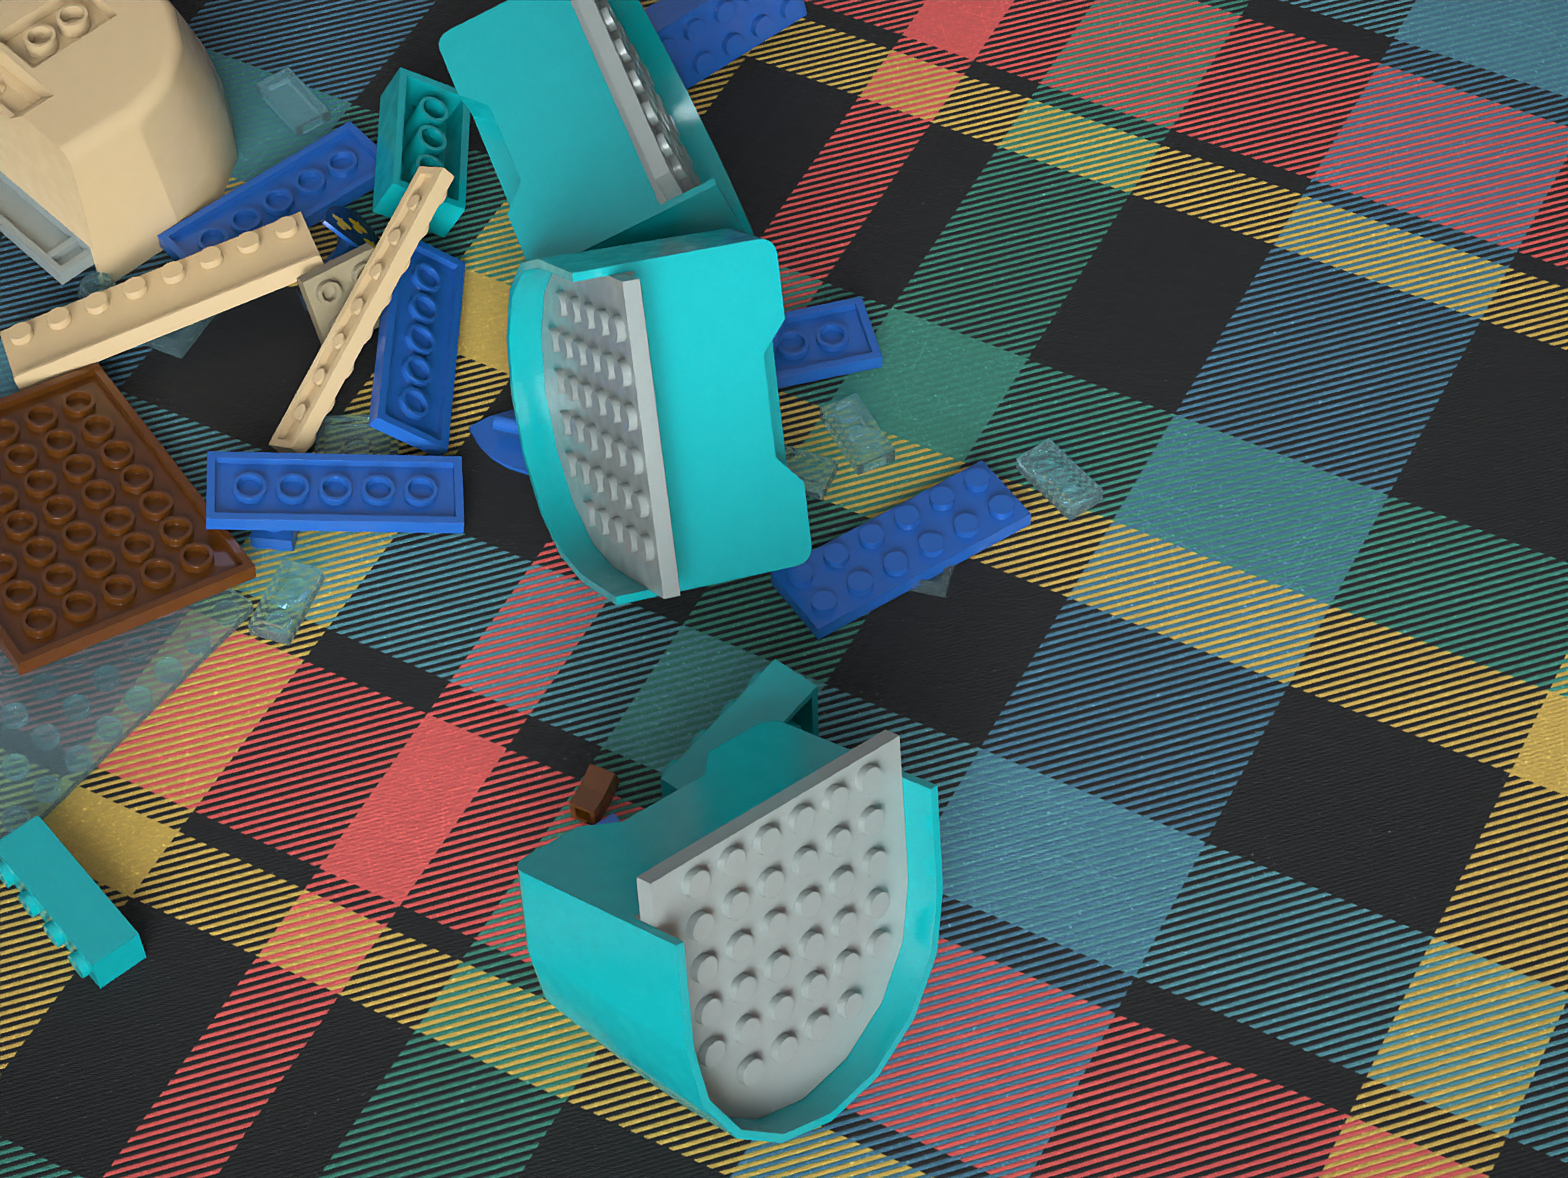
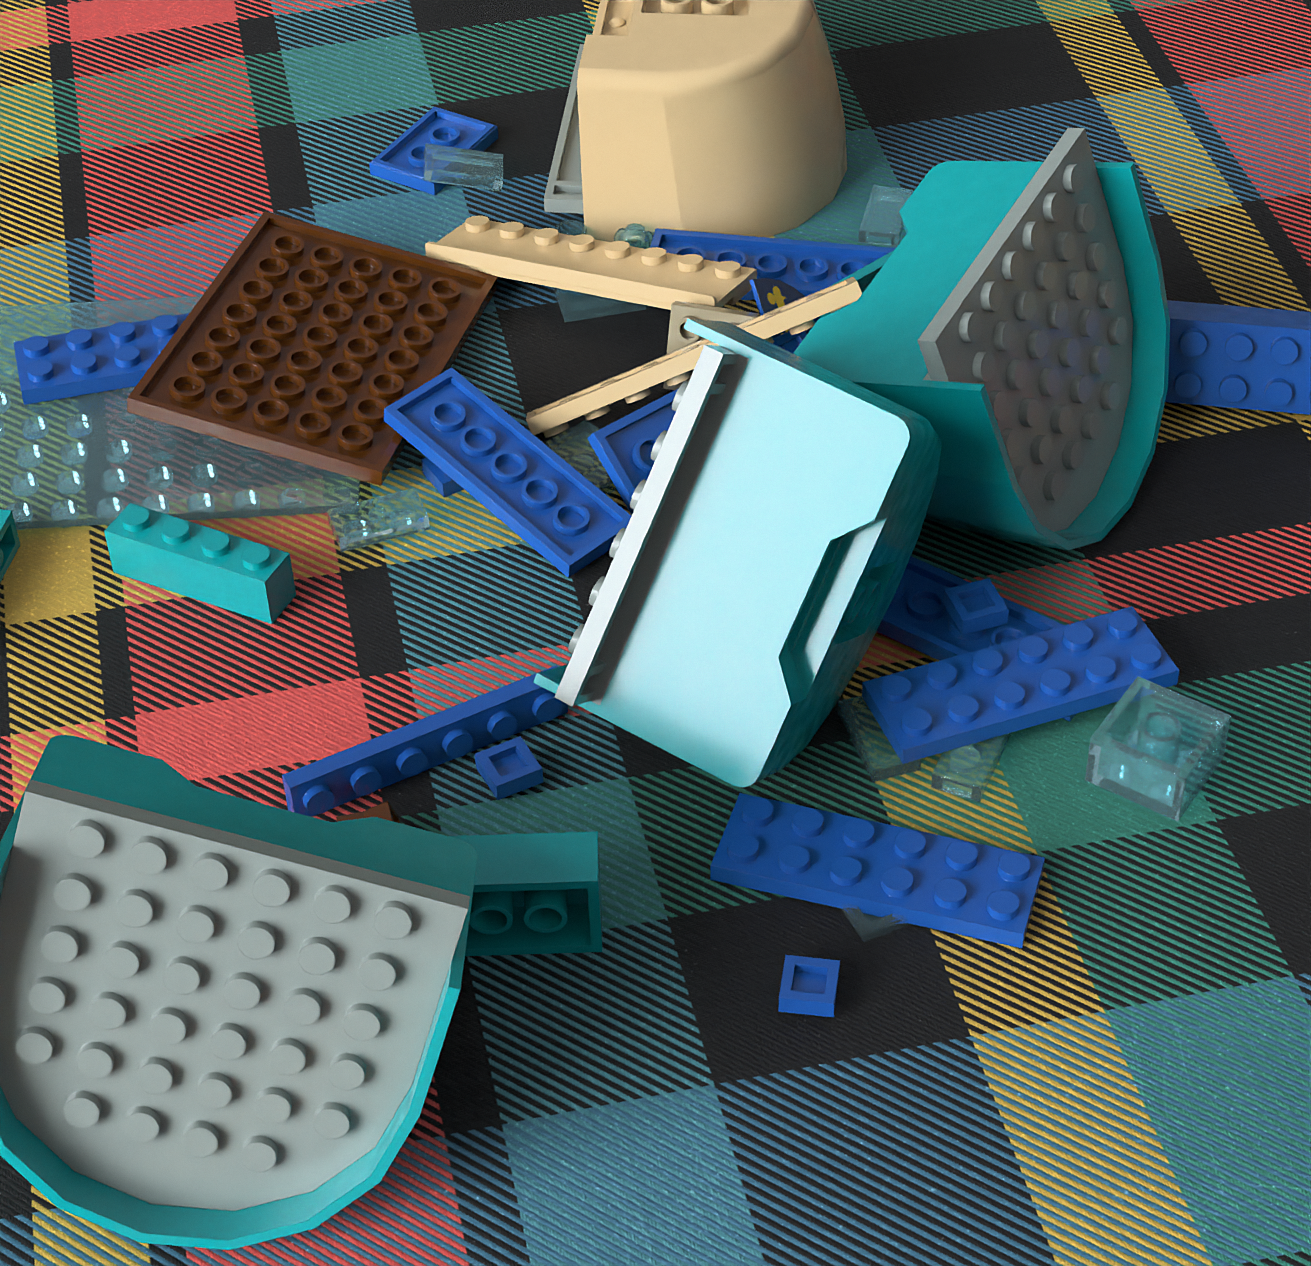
camera: 50 degrees right, 10 degrees down
(150, 256) = (635, 231): none -> clear light blue plate
(219, 733) = (201, 563): none -> teal brick
(548, 724) = (419, 746): none -> blue plate
(618, 680) = (509, 768): none -> blue plate
(843, 363) = (1016, 684): none -> blue plate
(963, 646) = (809, 986): none -> blue plate
(964, 340) = (1157, 748): none -> clear light blue brick
(1059, 479) = (1092, 931): clear light blue plate -> none

